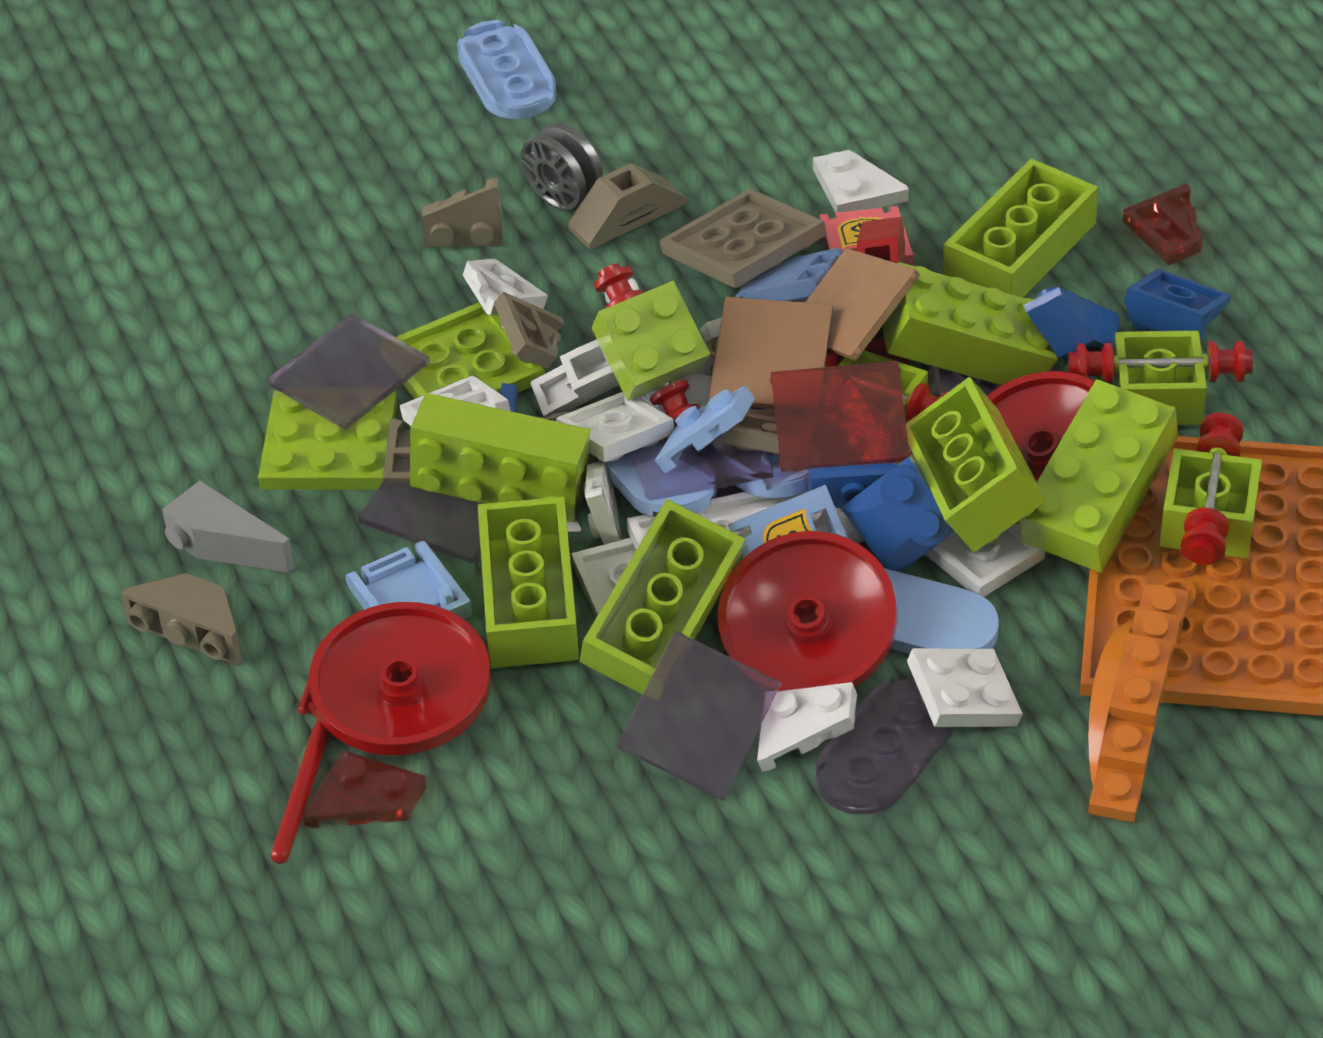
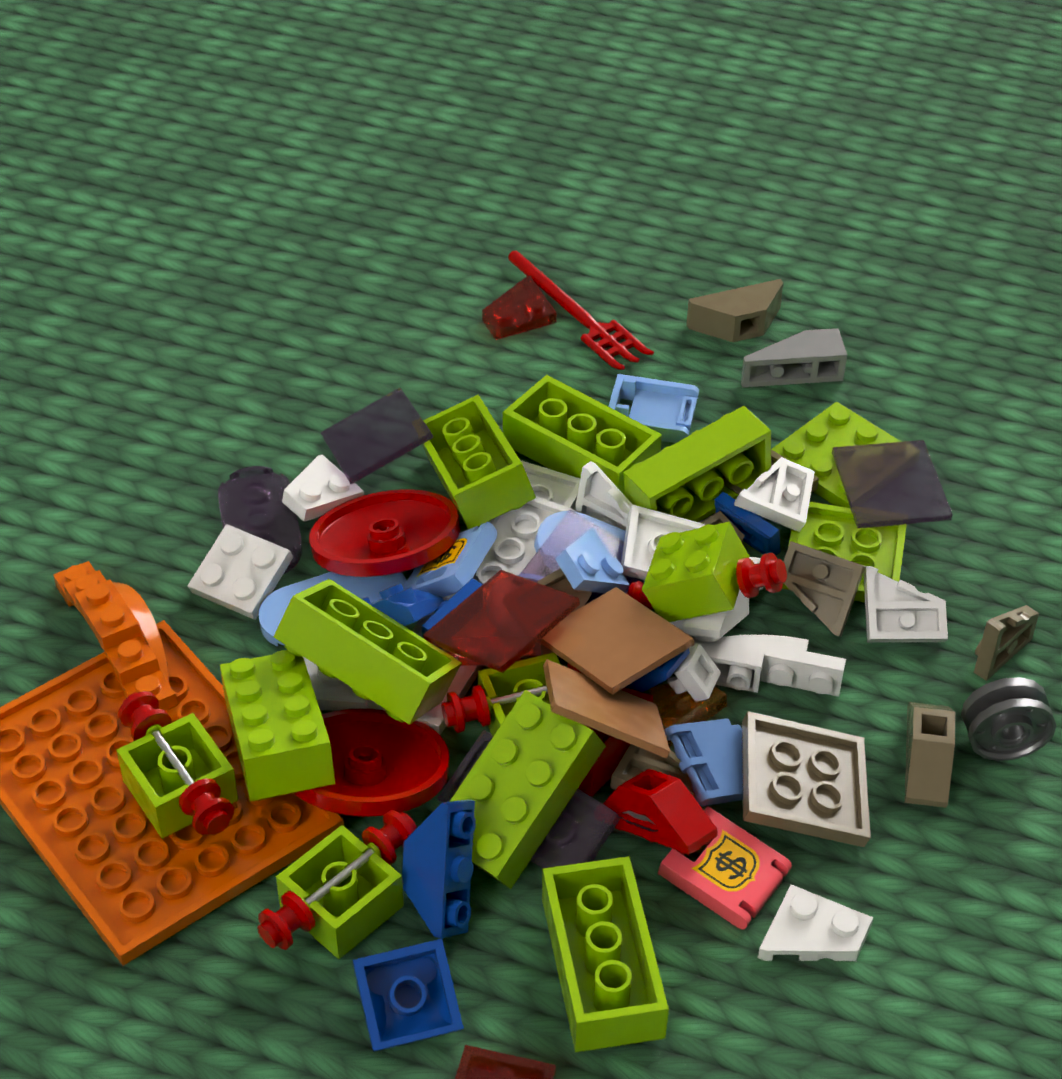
camera: 130 degrees right, 0 degrees up
(400, 678) = (575, 343): red dish -> none

